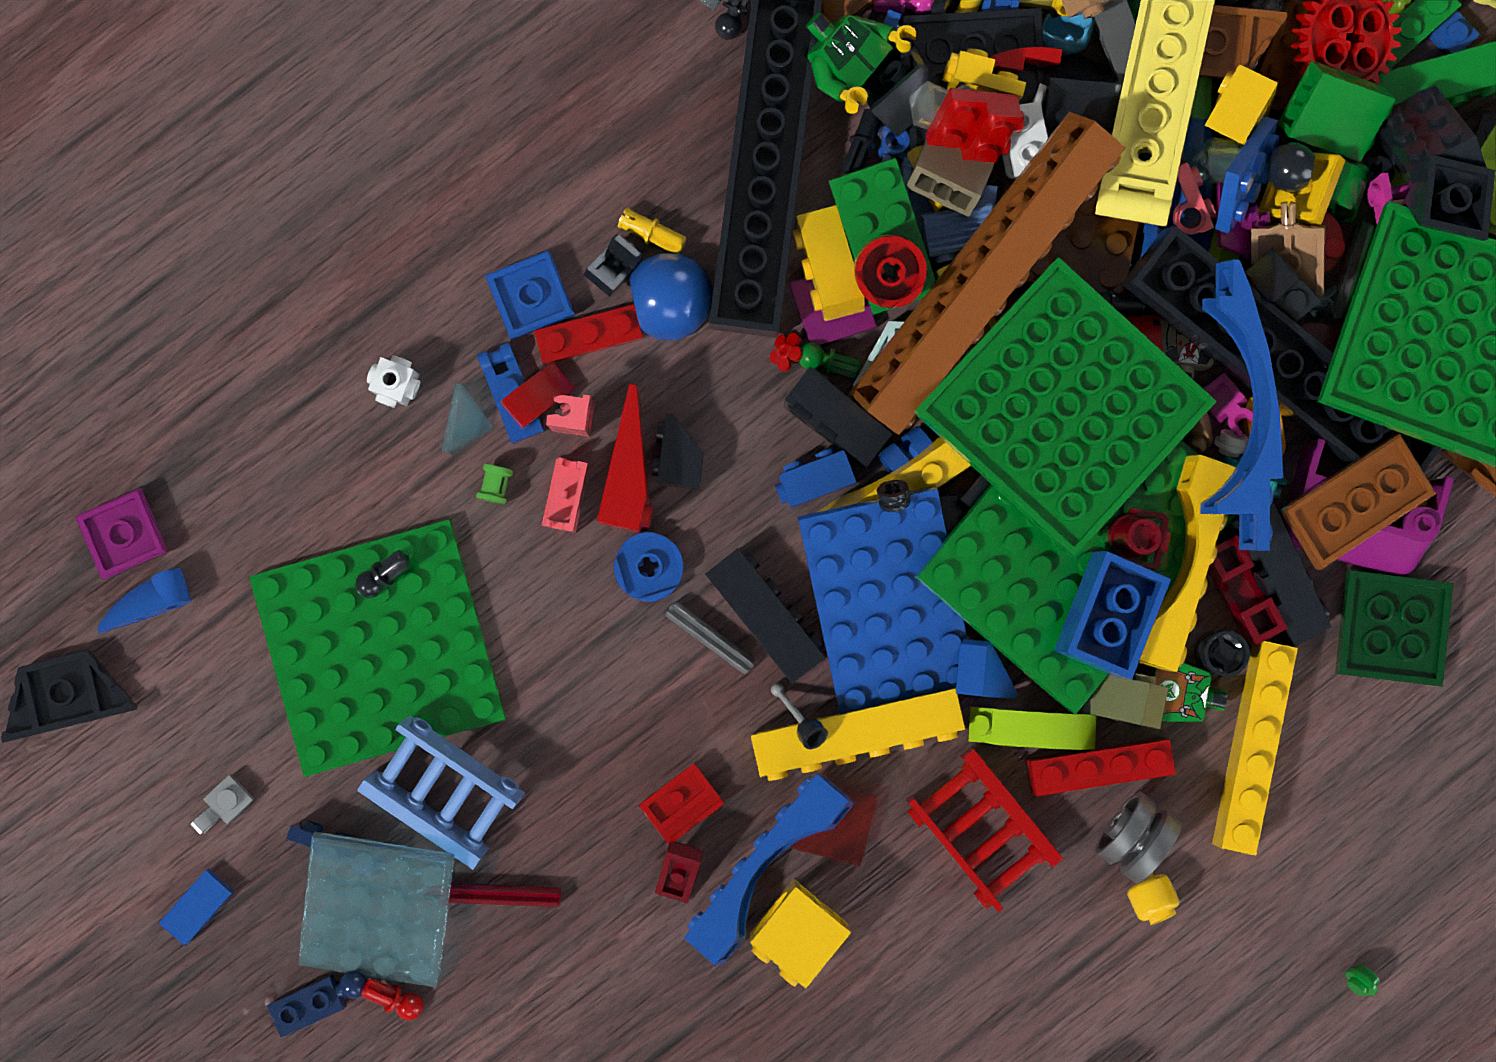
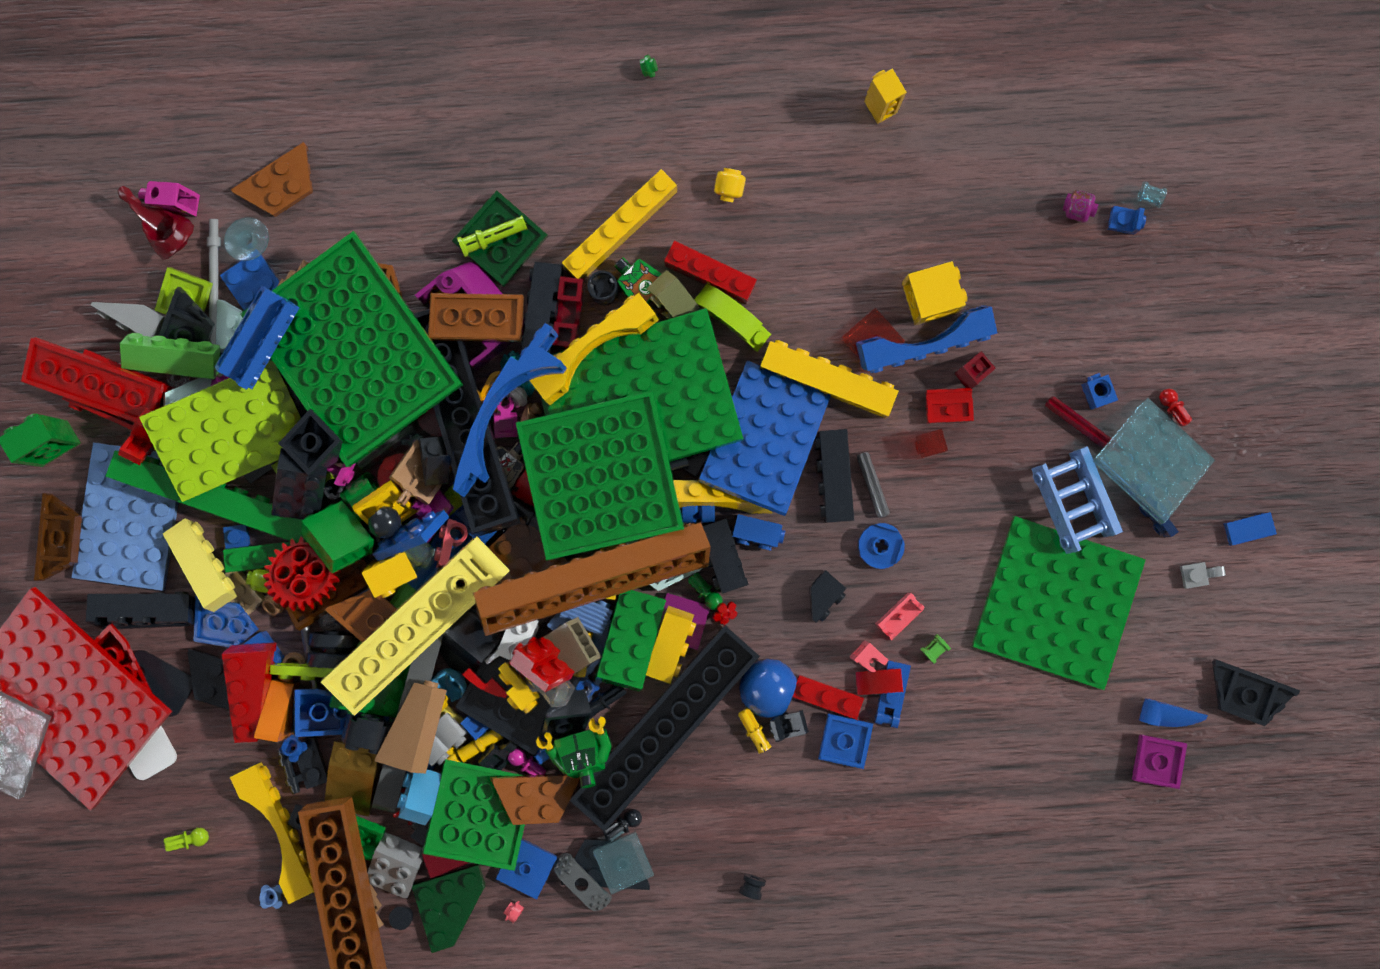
camera: 140 degrees left, 0 degrees up
(315, 1002) = (1218, 434): dark blue plate -> none
(370, 583) = (1031, 640): black axle -> none
(404, 387) = (946, 740): white brick -> none
(465, 421) = (928, 694): clear light blue slope -> none
(488, 952) = (1108, 396): none -> blue brick
(525, 41) = (752, 886): none -> black wheel
(626, 489) = (864, 597): red slope -> none
(673, 737) = (931, 443): none -> clear red brick
(809, 731) = (856, 396): black hinge -> none
(893, 495) = (726, 491): black bush -> none
(911, 271) = (653, 606): red brick -> none
(982, 672) = (740, 364): blue slope -> none
(1016, 824) = (776, 272): red fence -> none
(1112, 614) = (653, 346): blue brick -> none
(1137, 536) = (609, 379): dark red piece -> none
(1138, 837) = (717, 220): flat silver wheel -> none
(1415, 605) = (518, 225): none -> lime pin

